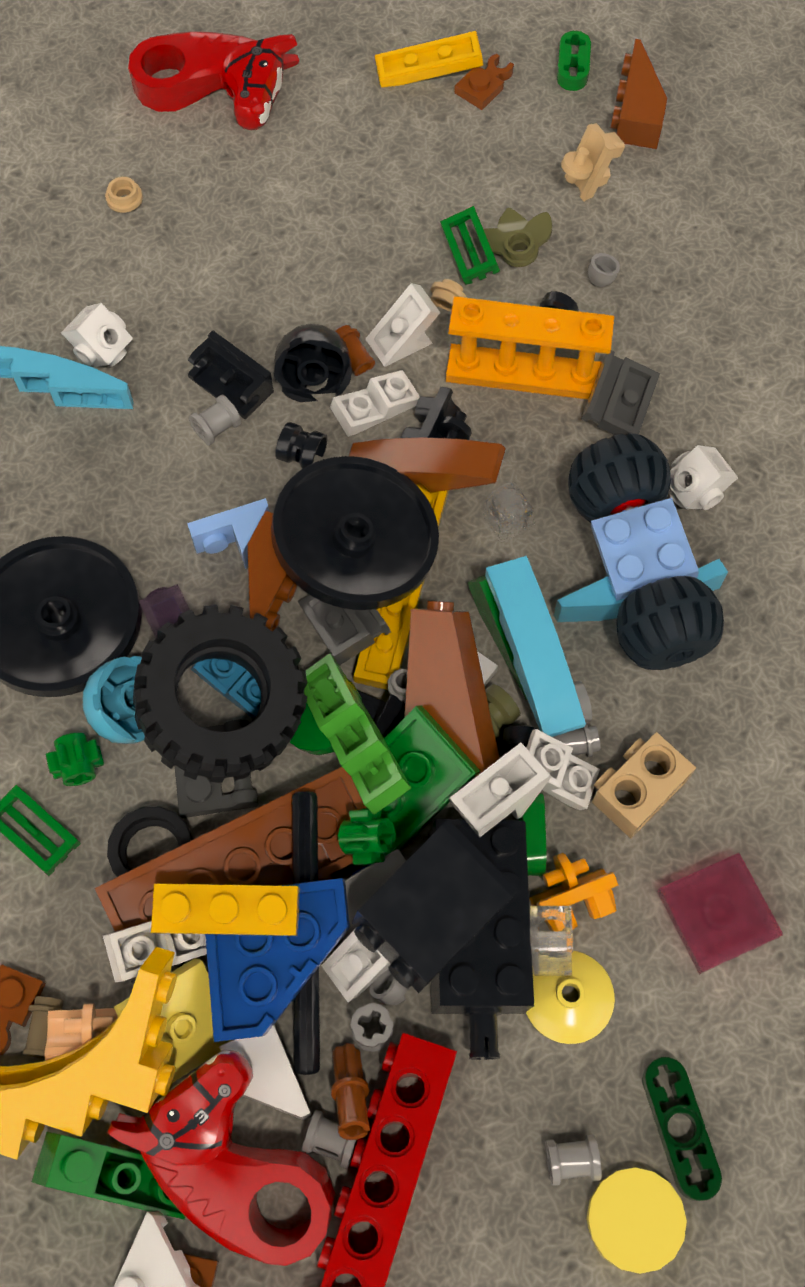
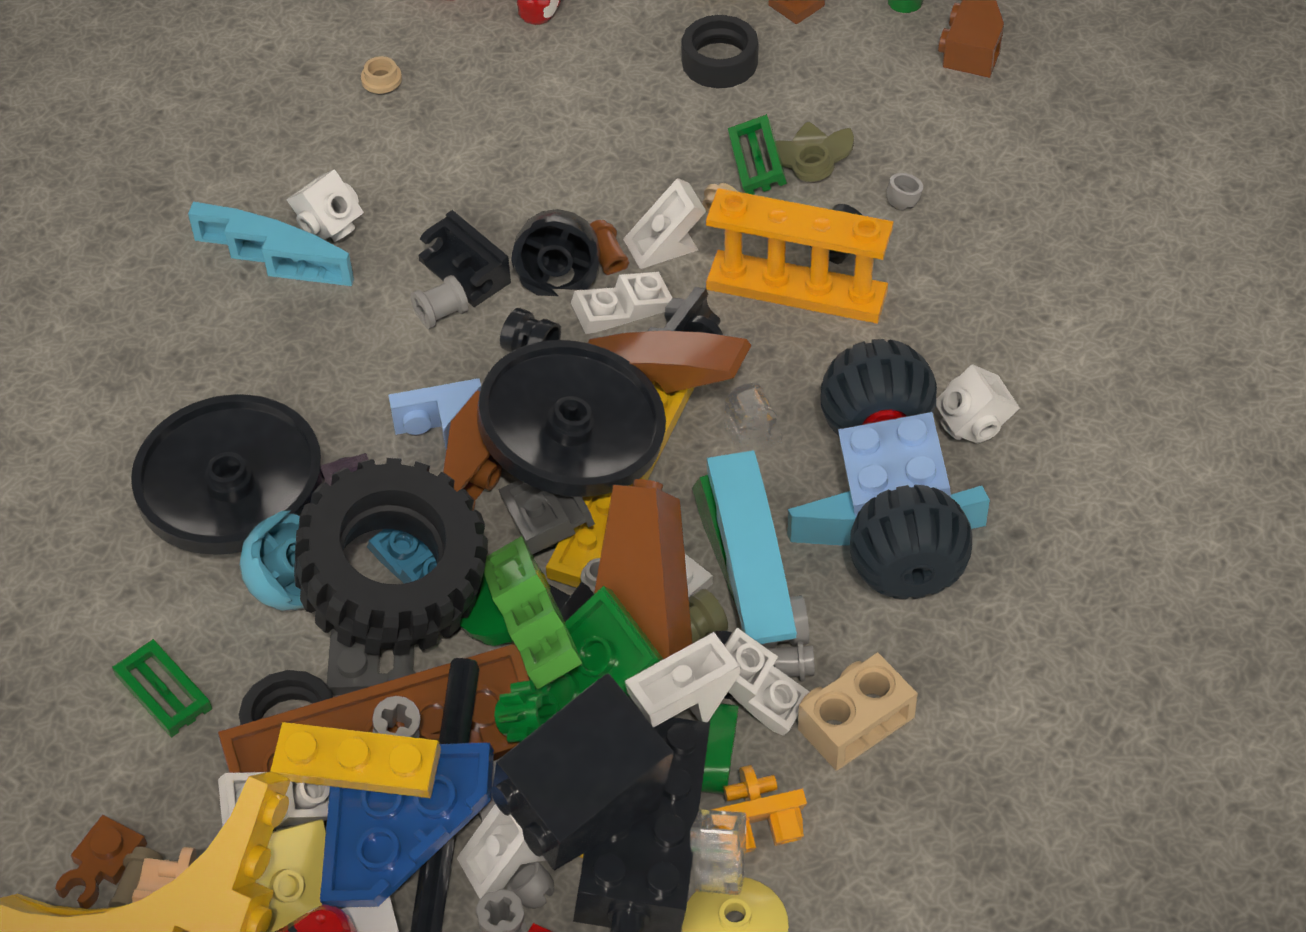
camera: 10 degrees right, 15 degrees down
(74, 759) = (221, 618): green gear -> none
(266, 858) = (393, 710): none -> light grey bush
(416, 165) = (719, 72): none -> black tyre
(590, 162) = (903, 81): tan hips -> none
(621, 395) = (902, 312): dark grey plate -> none
(719, 913) = (924, 854): clear pink plate -> none

